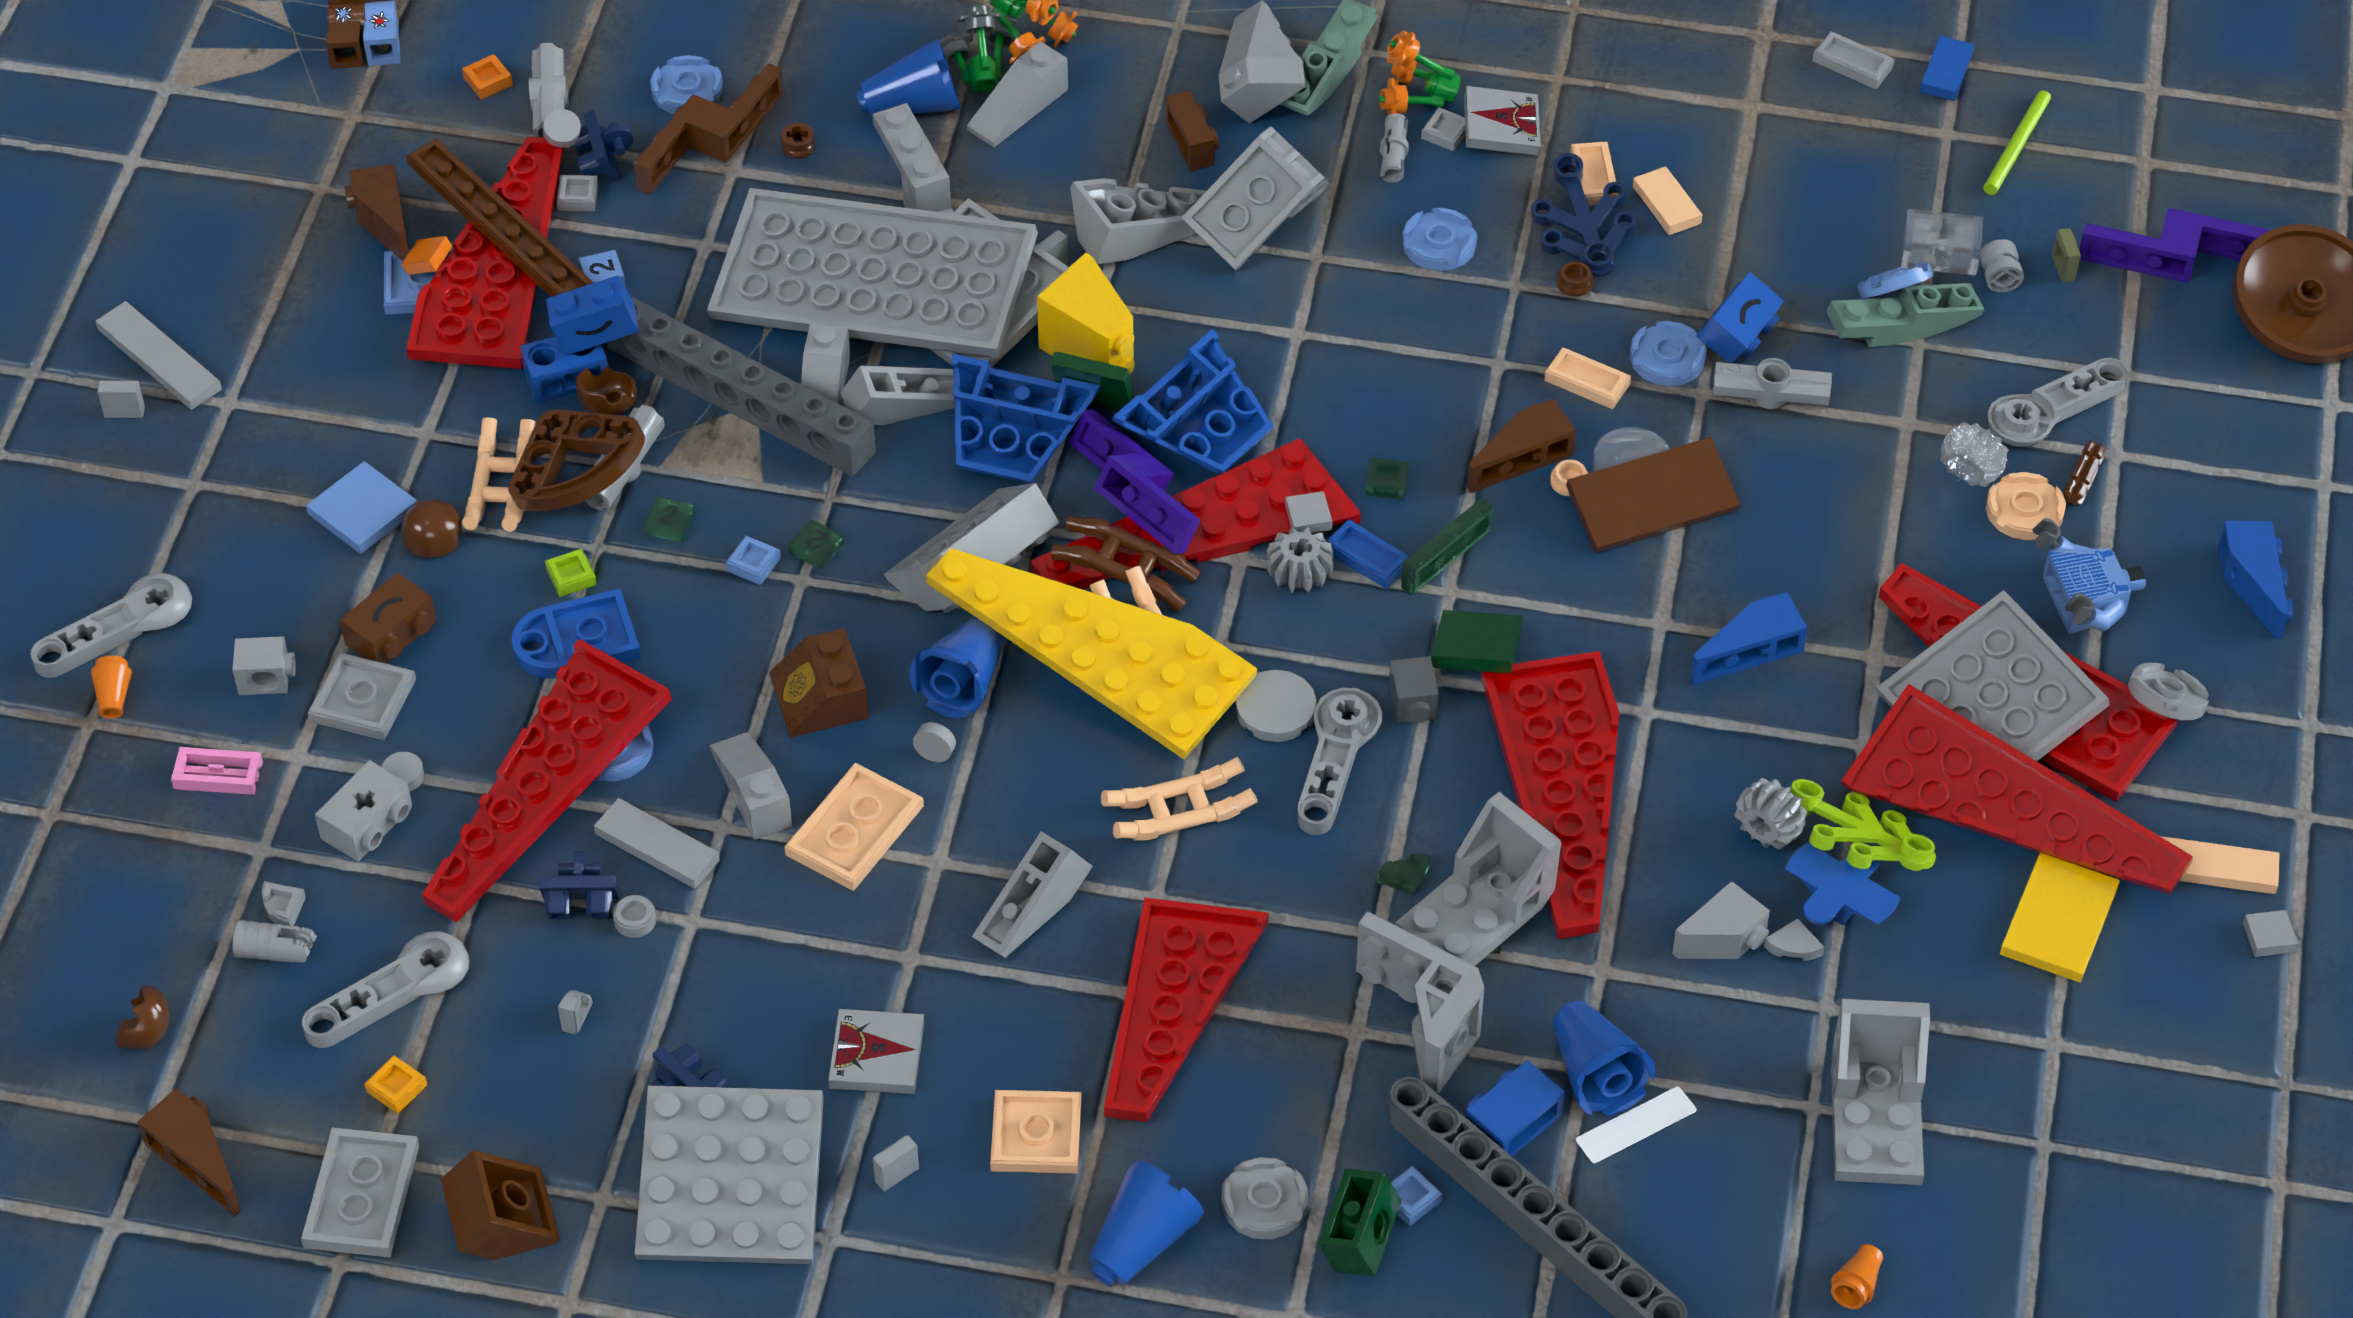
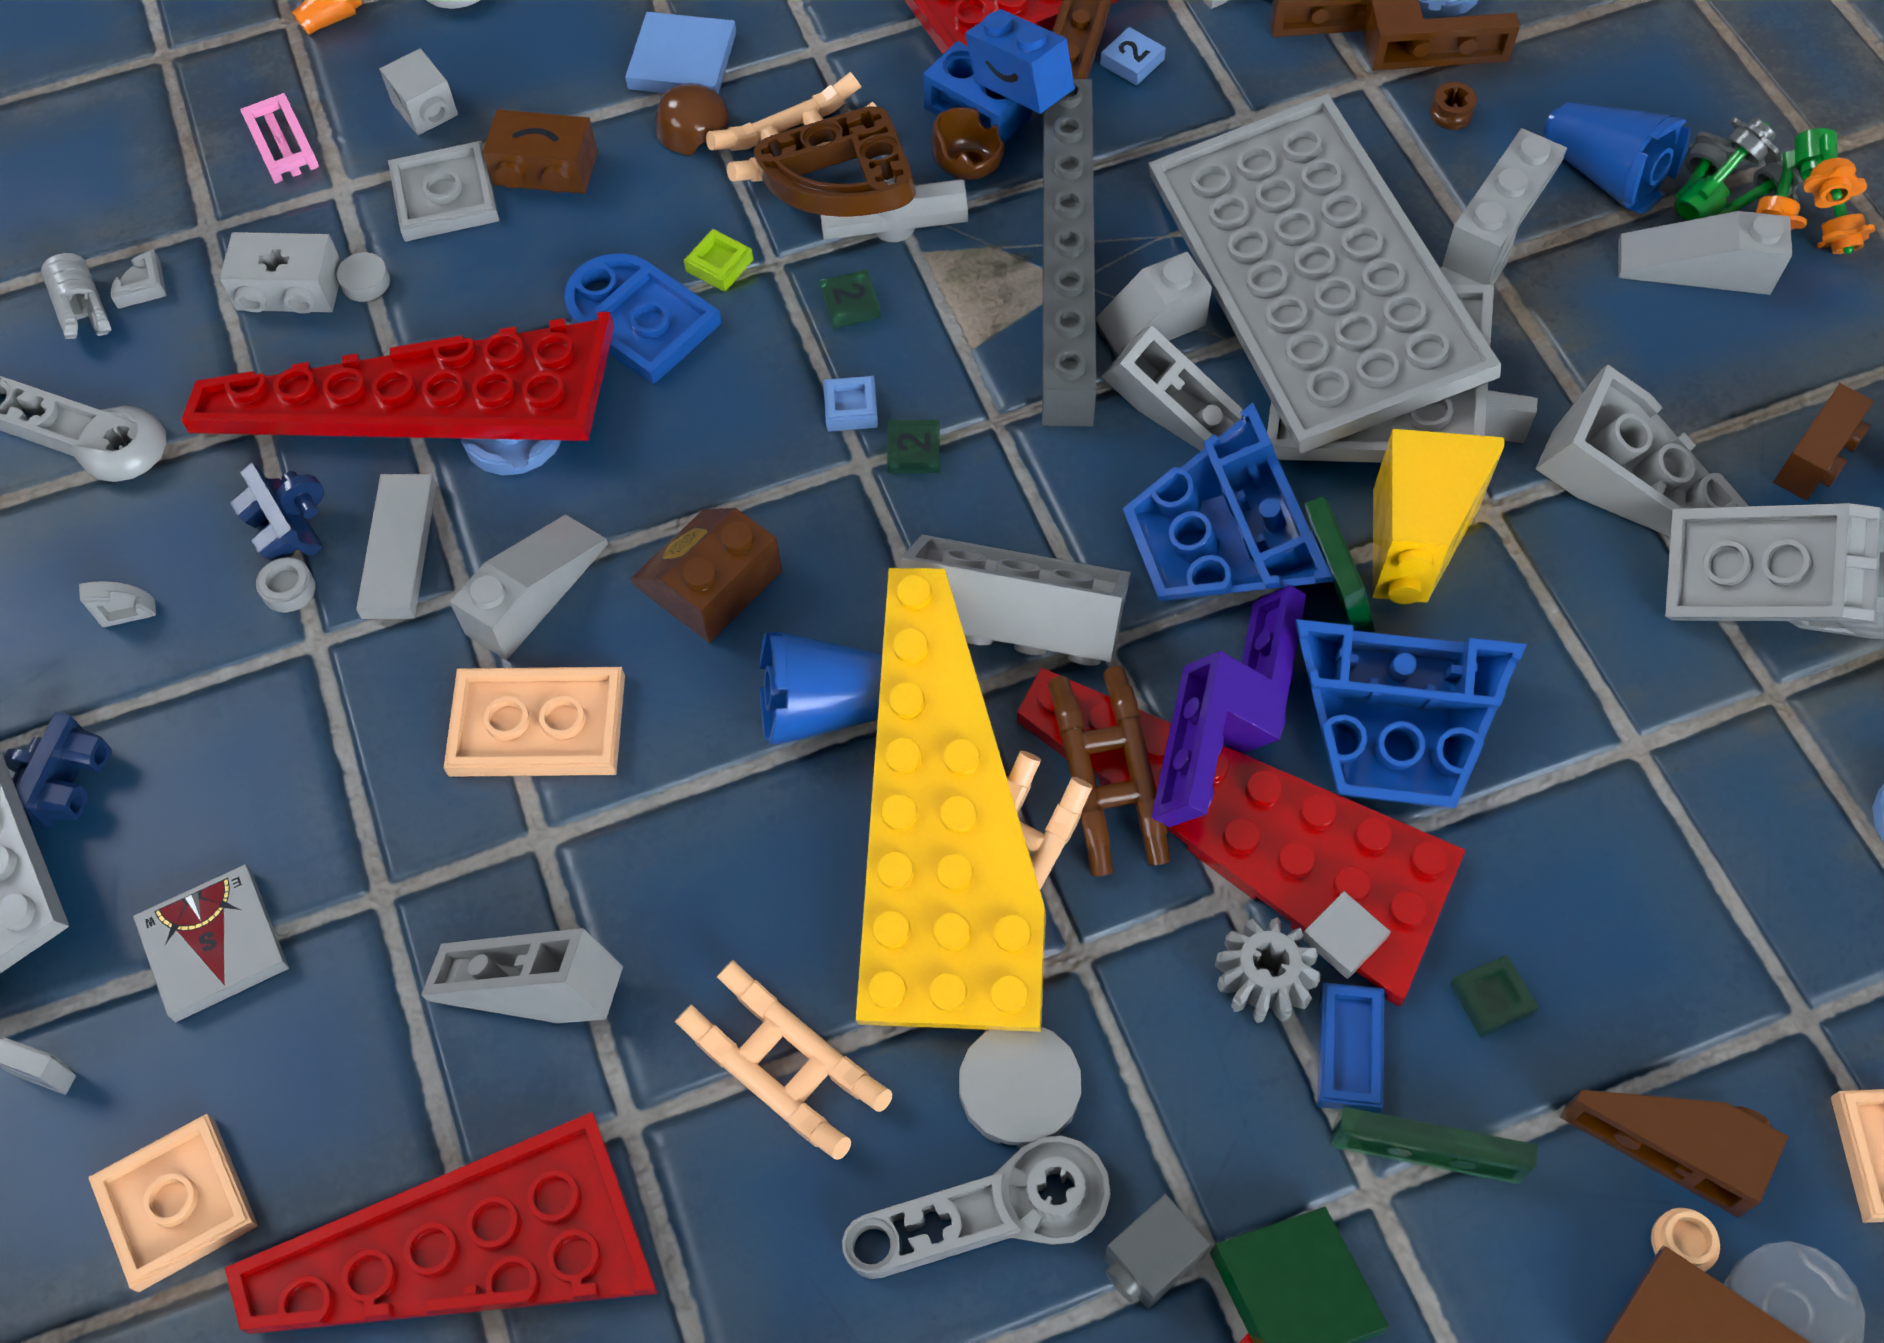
camera: 60 degrees right, 10 degrees up
(934, 742) = (699, 729): light grey tile -> none

